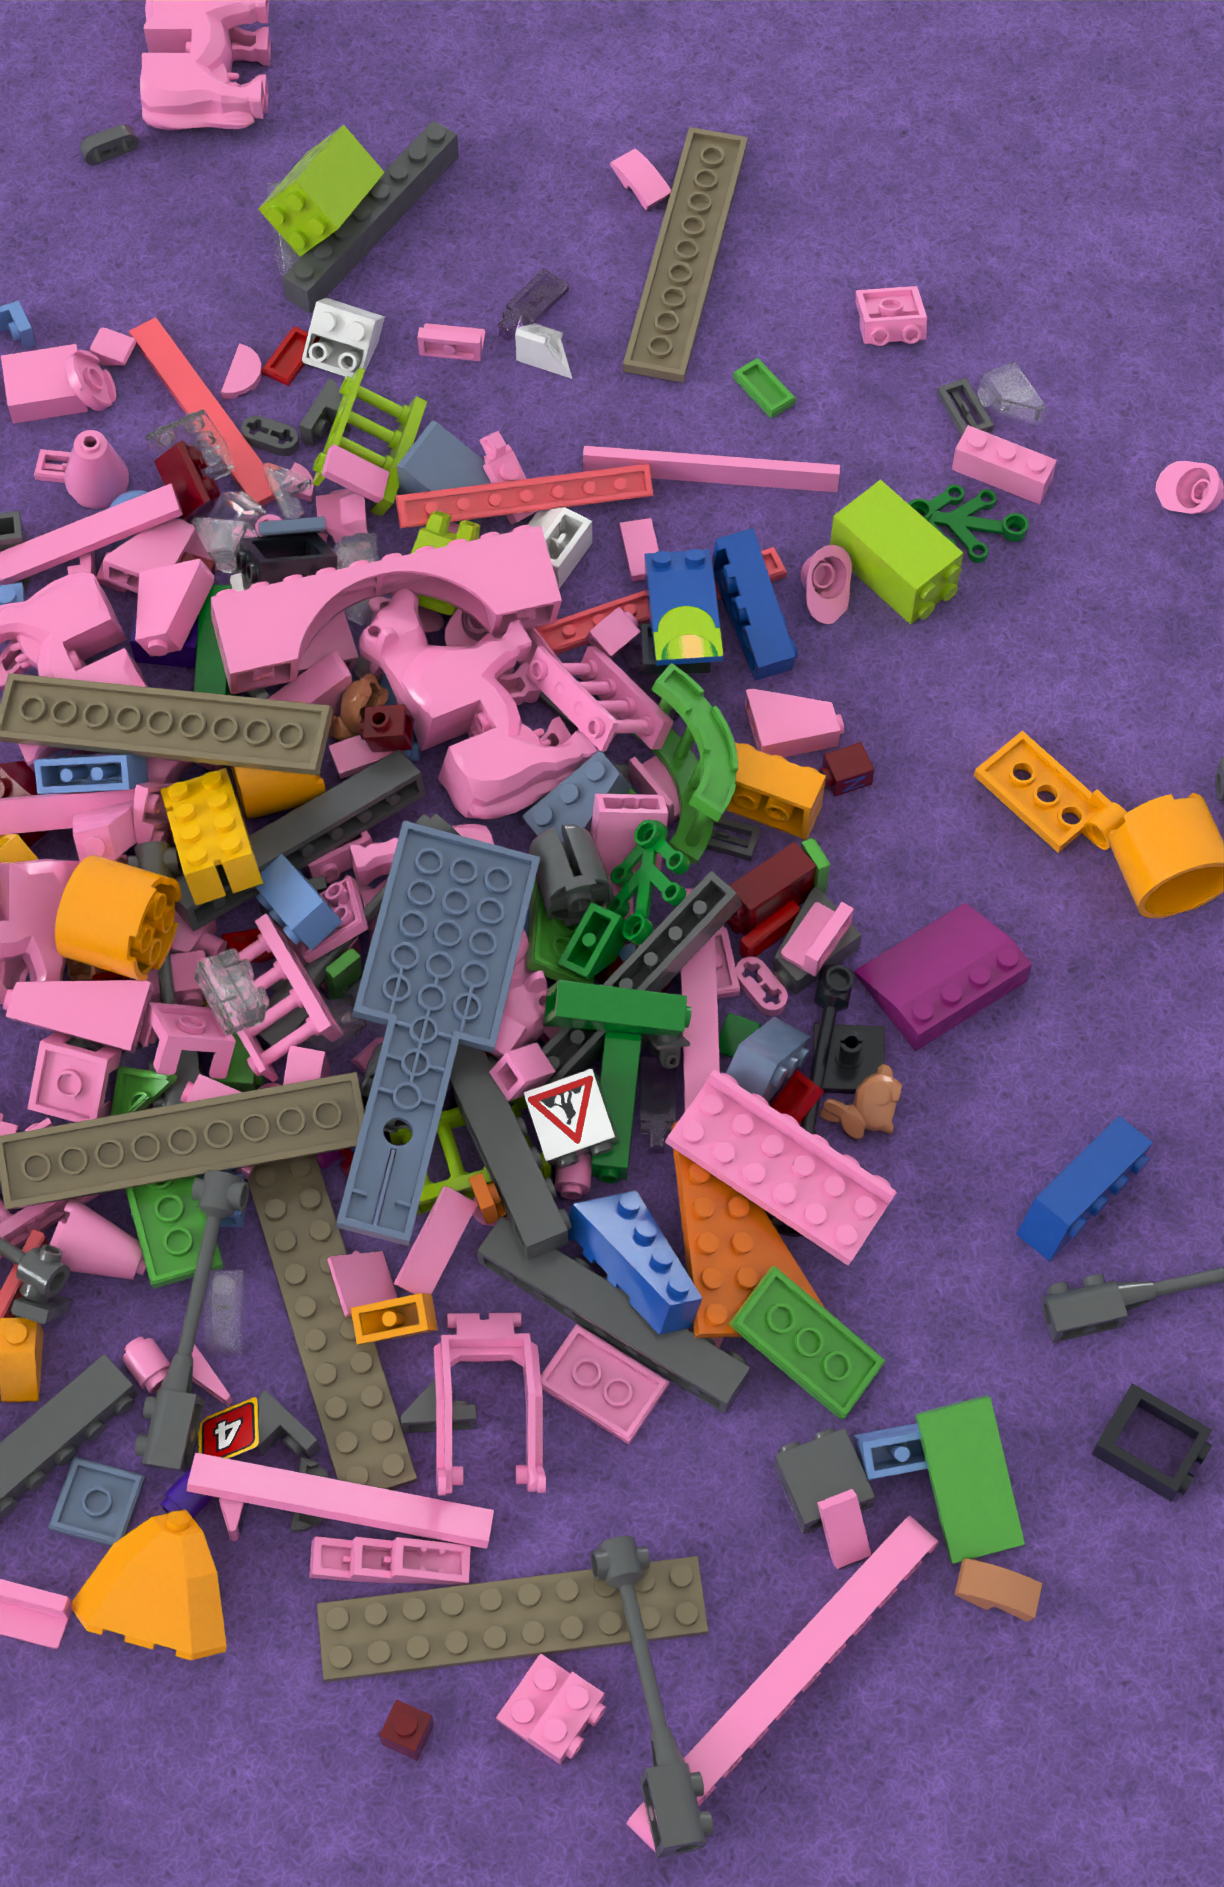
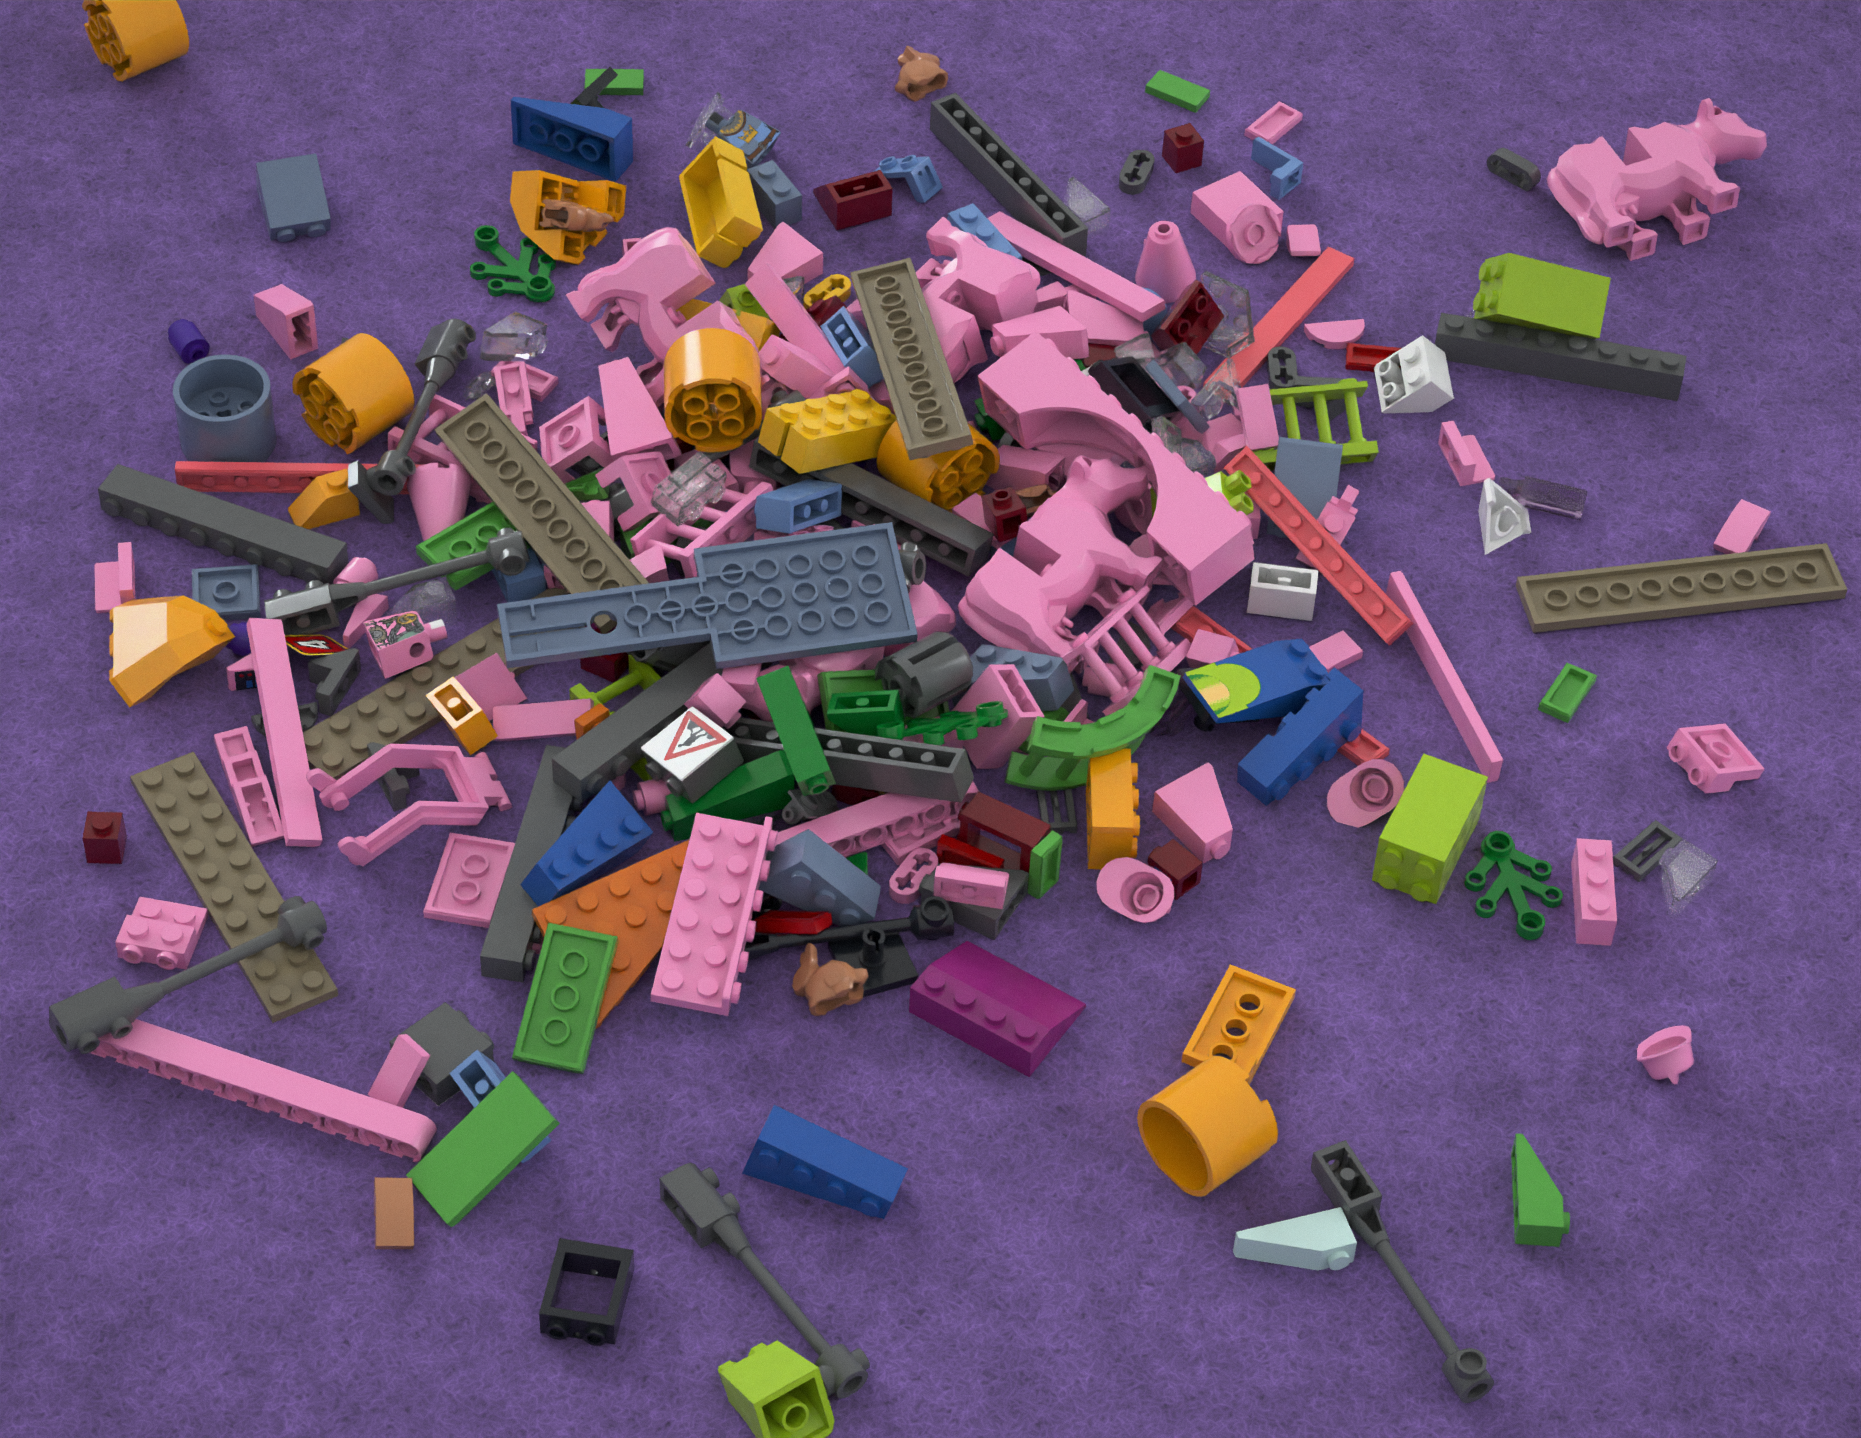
camera: 65 degrees right, 15 degrees down
(267, 1344) = (402, 641): none -> bright pink torso
(869, 807) = (1135, 890): none -> bright pink piece

